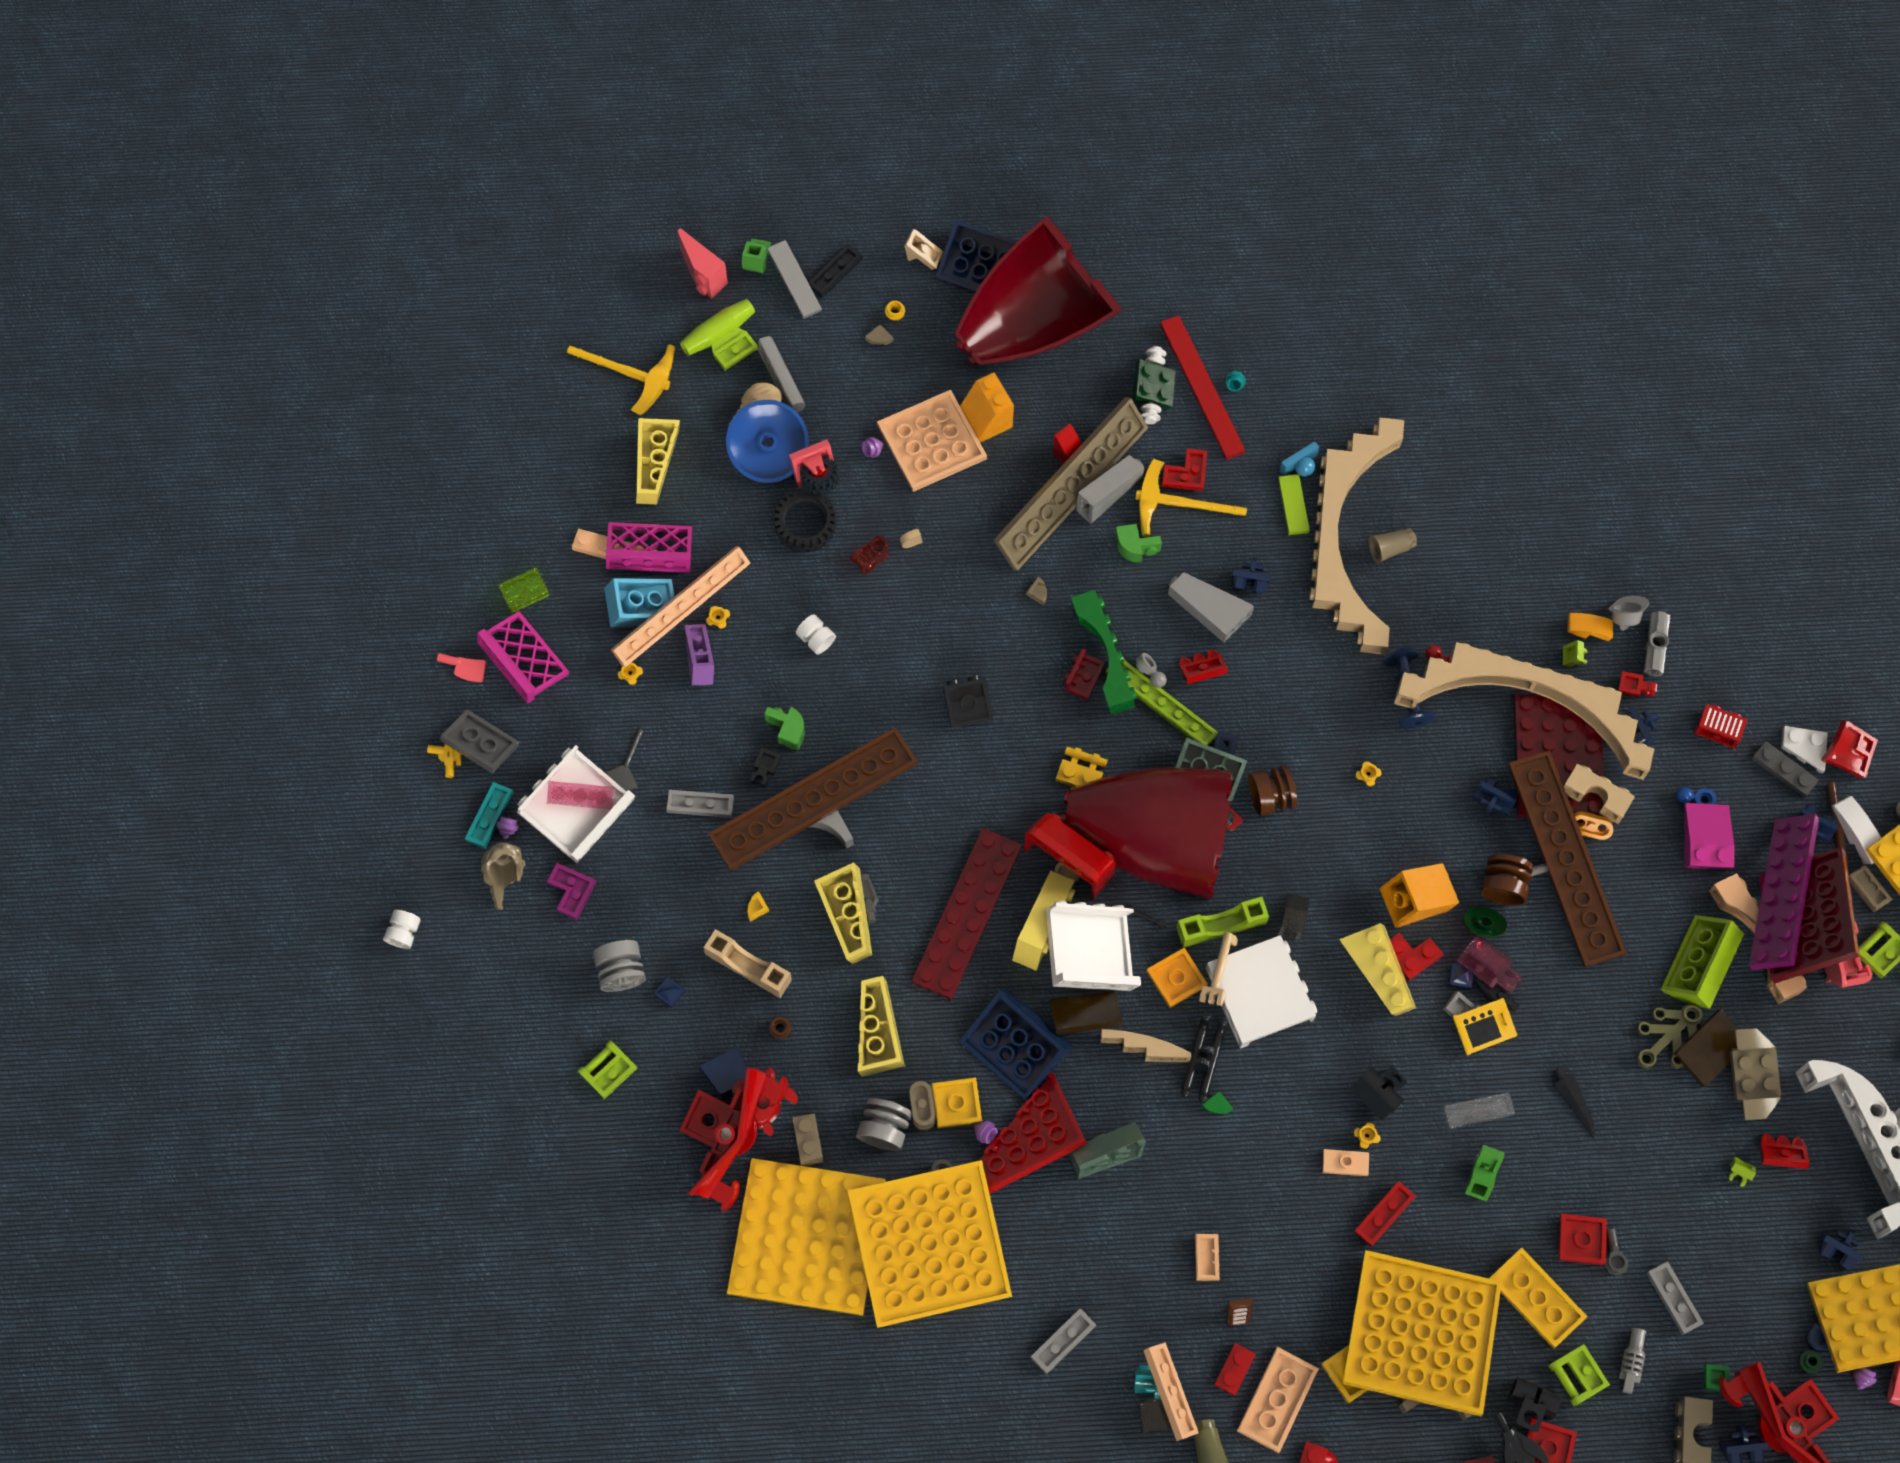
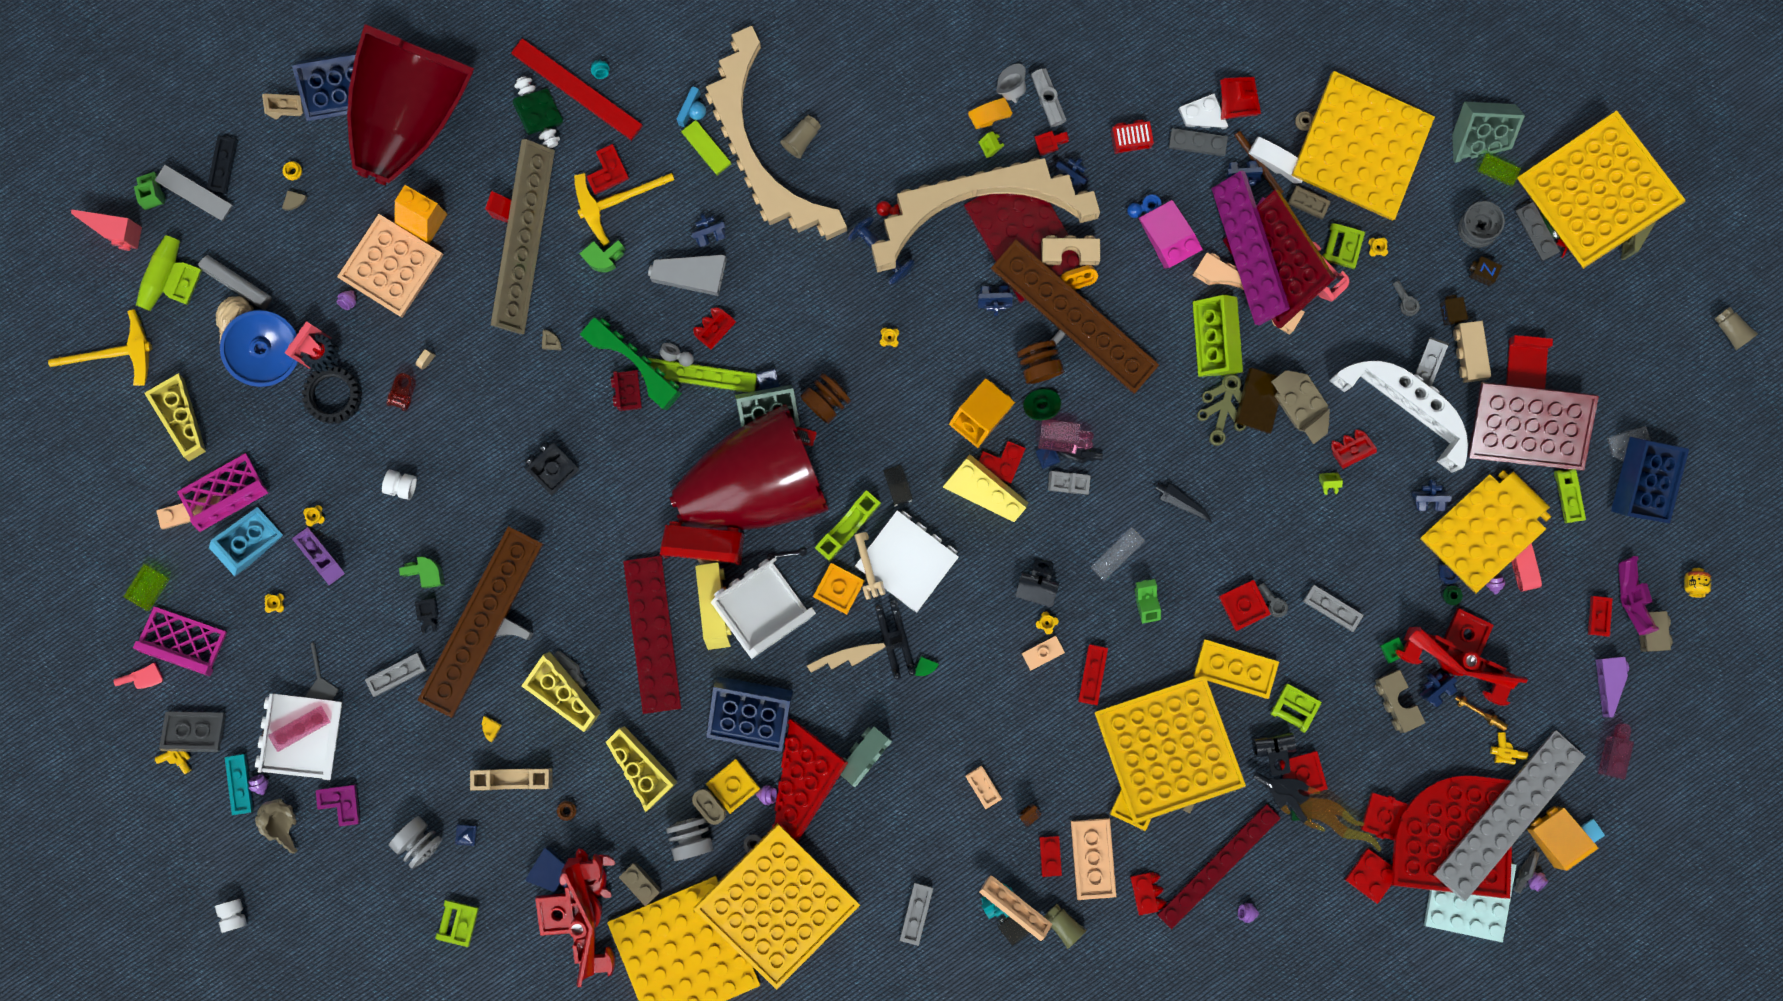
camera: 30 degrees left, 15 degrees up
(680, 606) = (279, 526): light nougat plate -> none
(1074, 774) = (670, 473): yellow plate -> none
(1086, 1012) = (787, 659): dark brown tile -> none
(1108, 488) = (554, 222): light grey slope -> none
(1484, 1026) = (1086, 486): yellow container -> none
(1633, 1360) = (1328, 673): light grey hinge -> none

